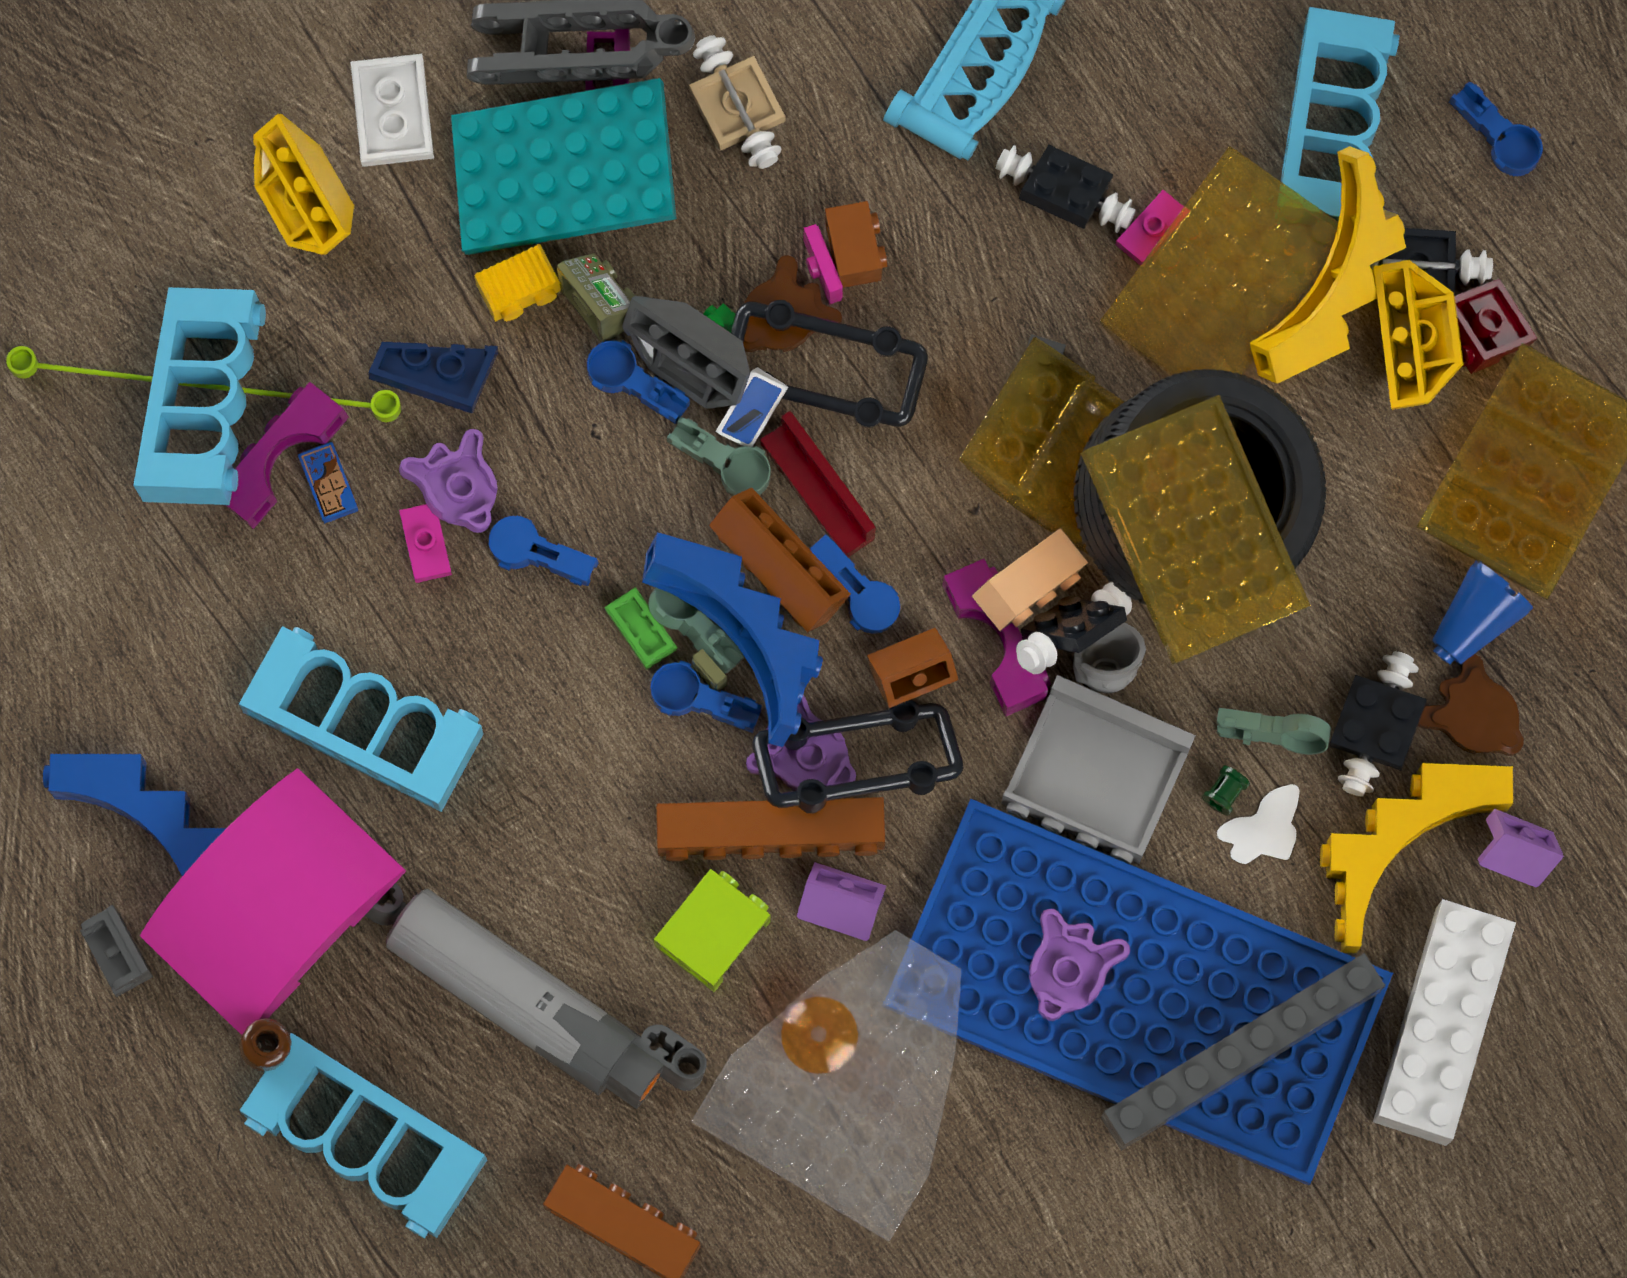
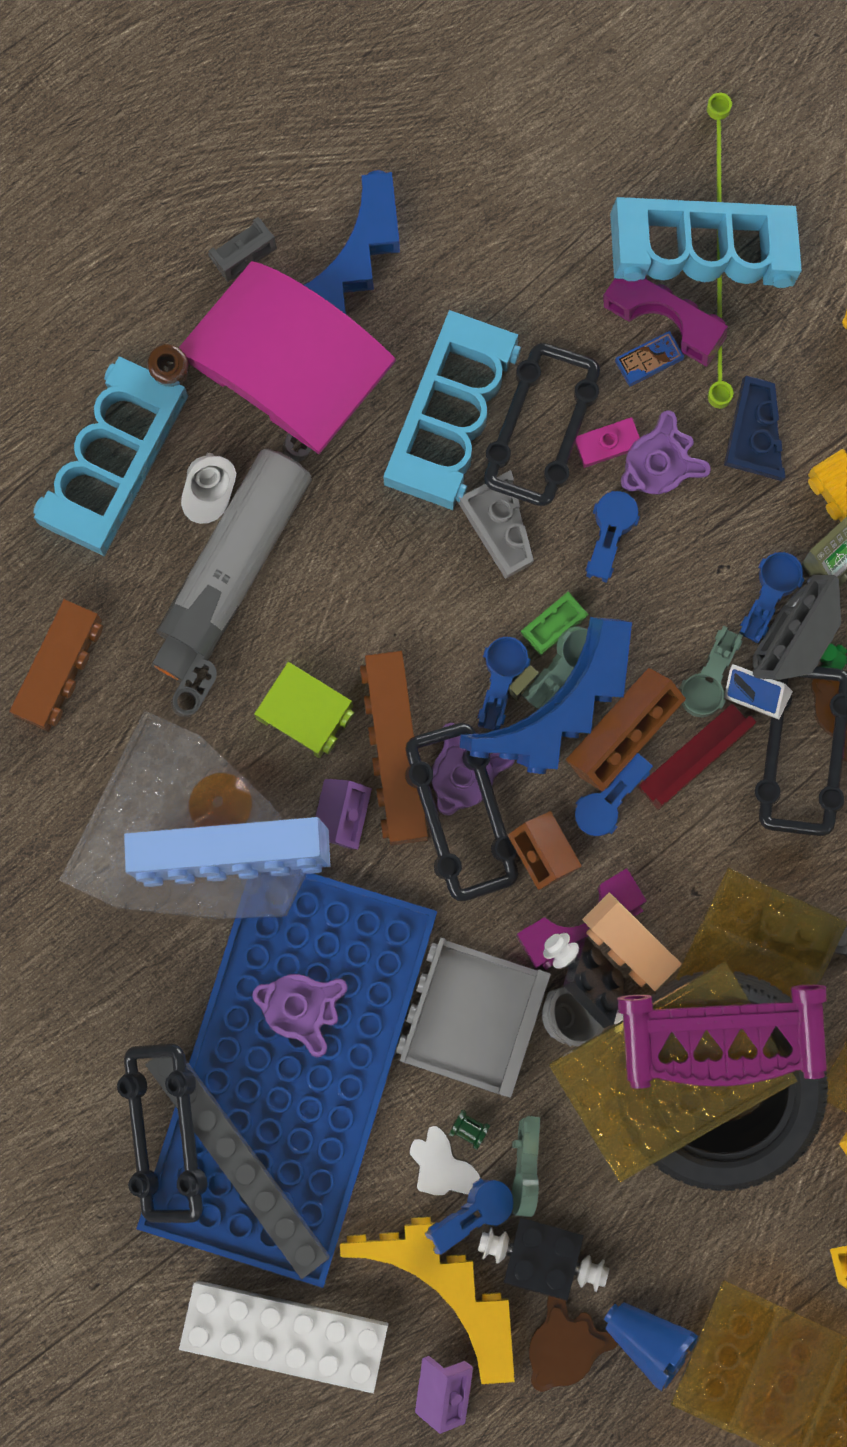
camera: 90 degrees right, 5 degrees up
(420, 1018) = (208, 488): none -> white piece
(424, 666) = (557, 471): none -> black bar
(508, 680) = (499, 526): none -> light grey wing
(882, 1020) = (227, 851): none -> light blue brick
(1149, 542) = (797, 1020): none -> magenta piece
(1155, 1098) = (145, 1182): none -> black bar
(1303, 778) = (492, 1201): none -> blue piece

